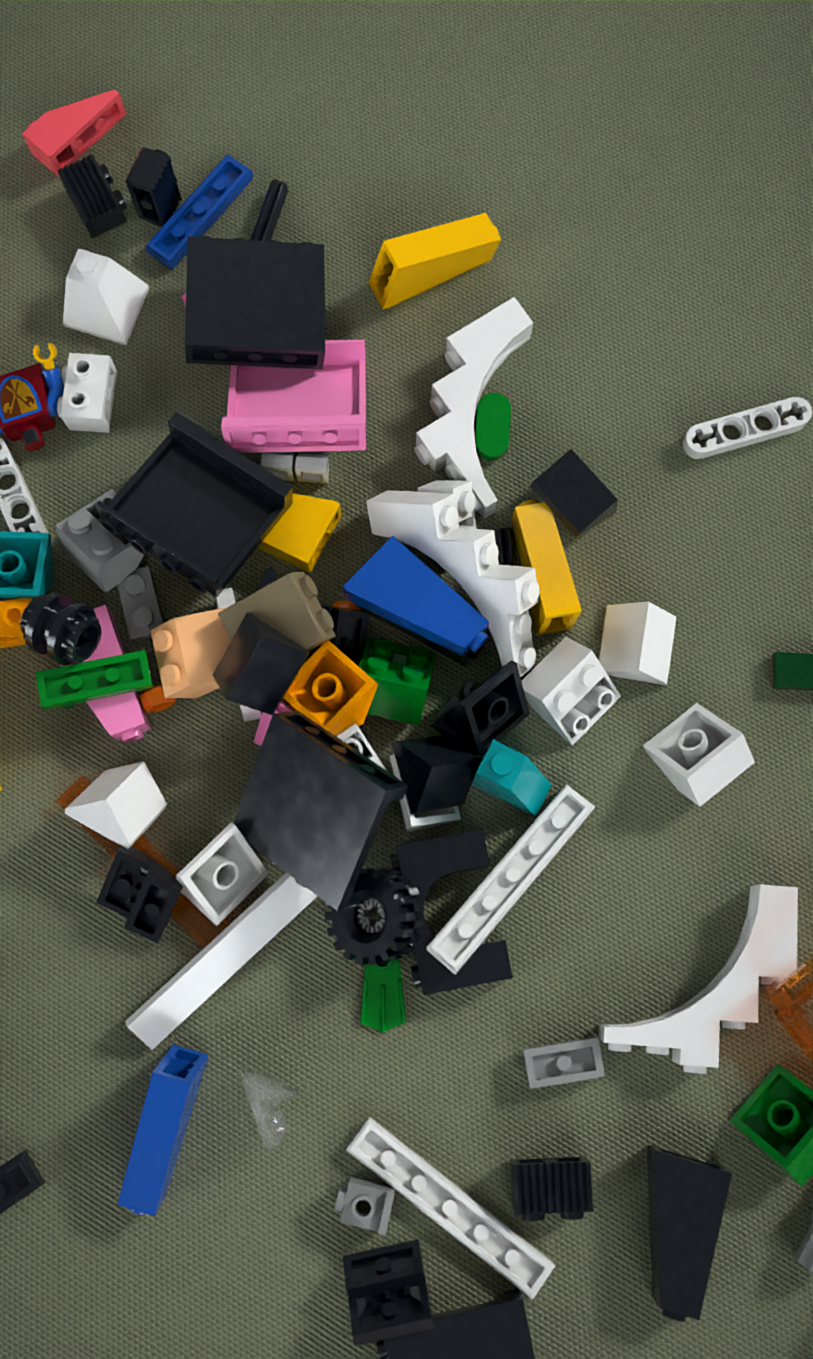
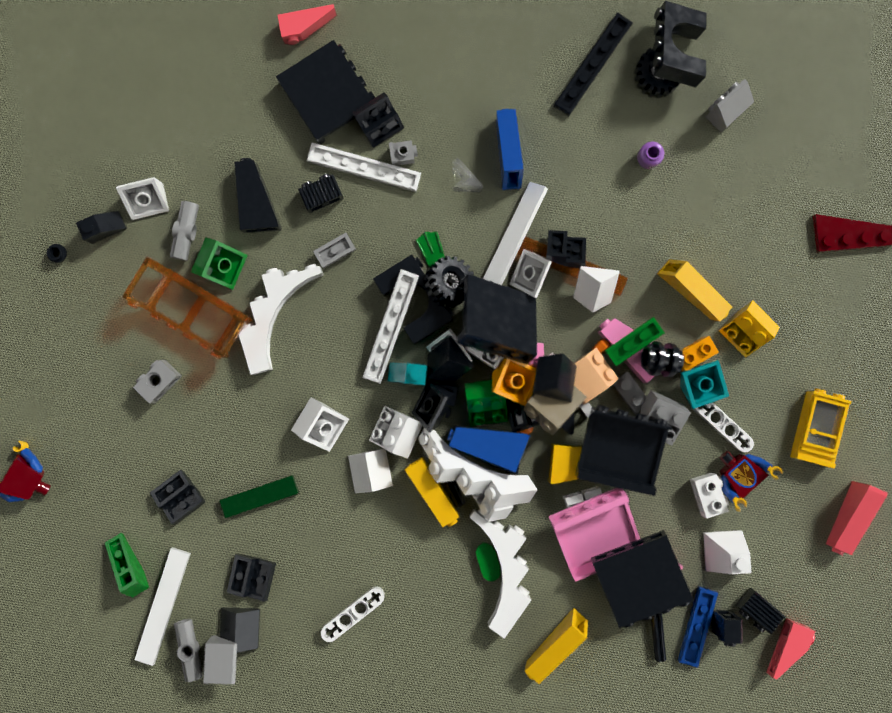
camera: 155 degrees right, 10 degrees up
(575, 494) = (431, 535): black slope -> none

